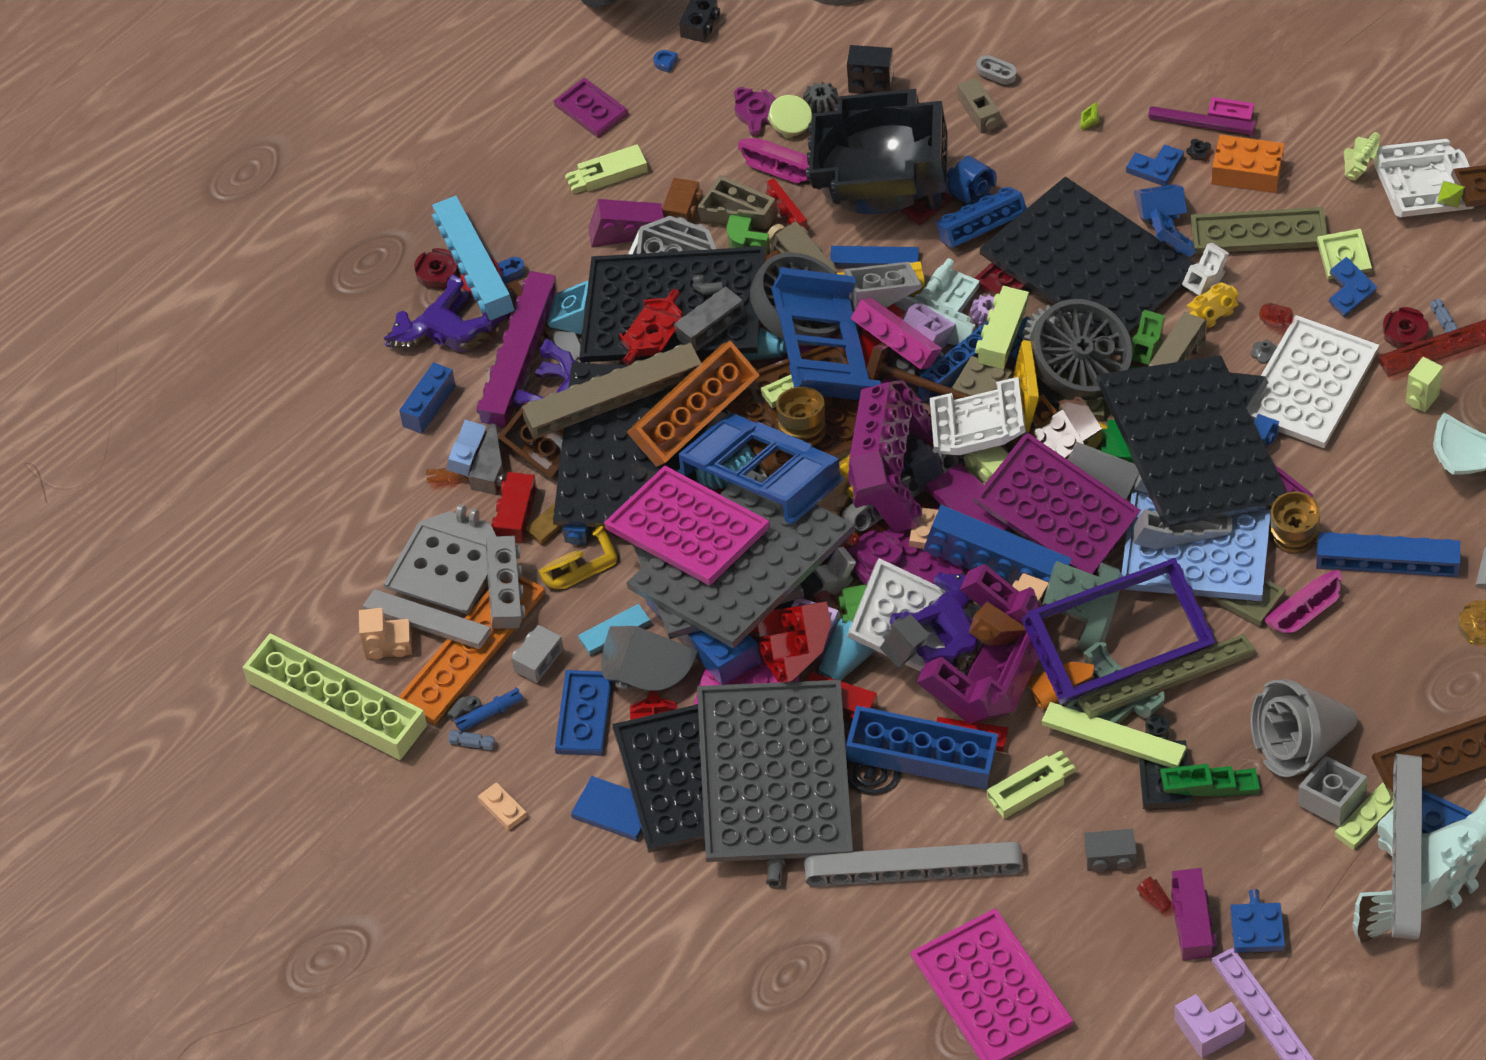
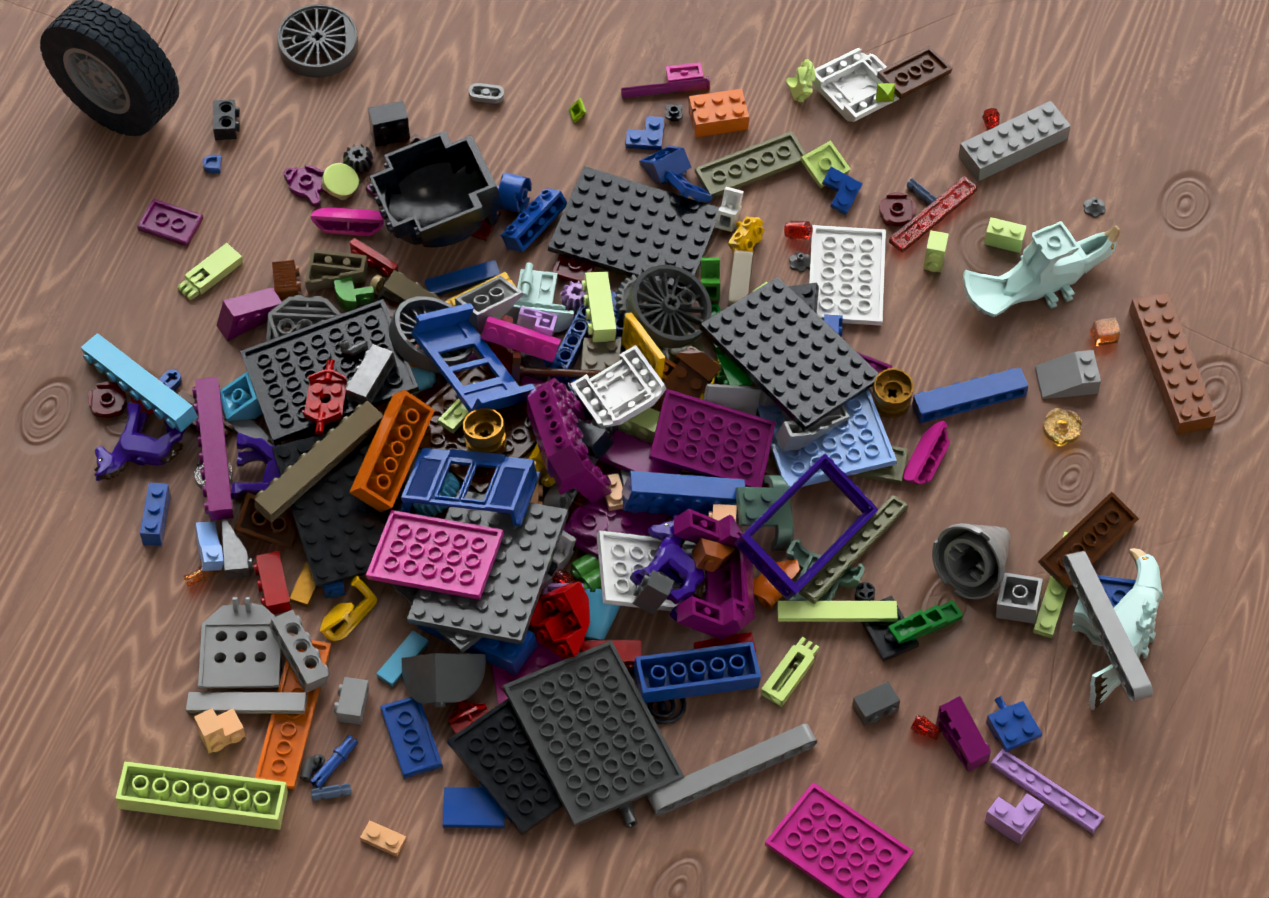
camera: 30 degrees left, 5 degrees up
(978, 105) = (486, 127): dark tan brick -> none

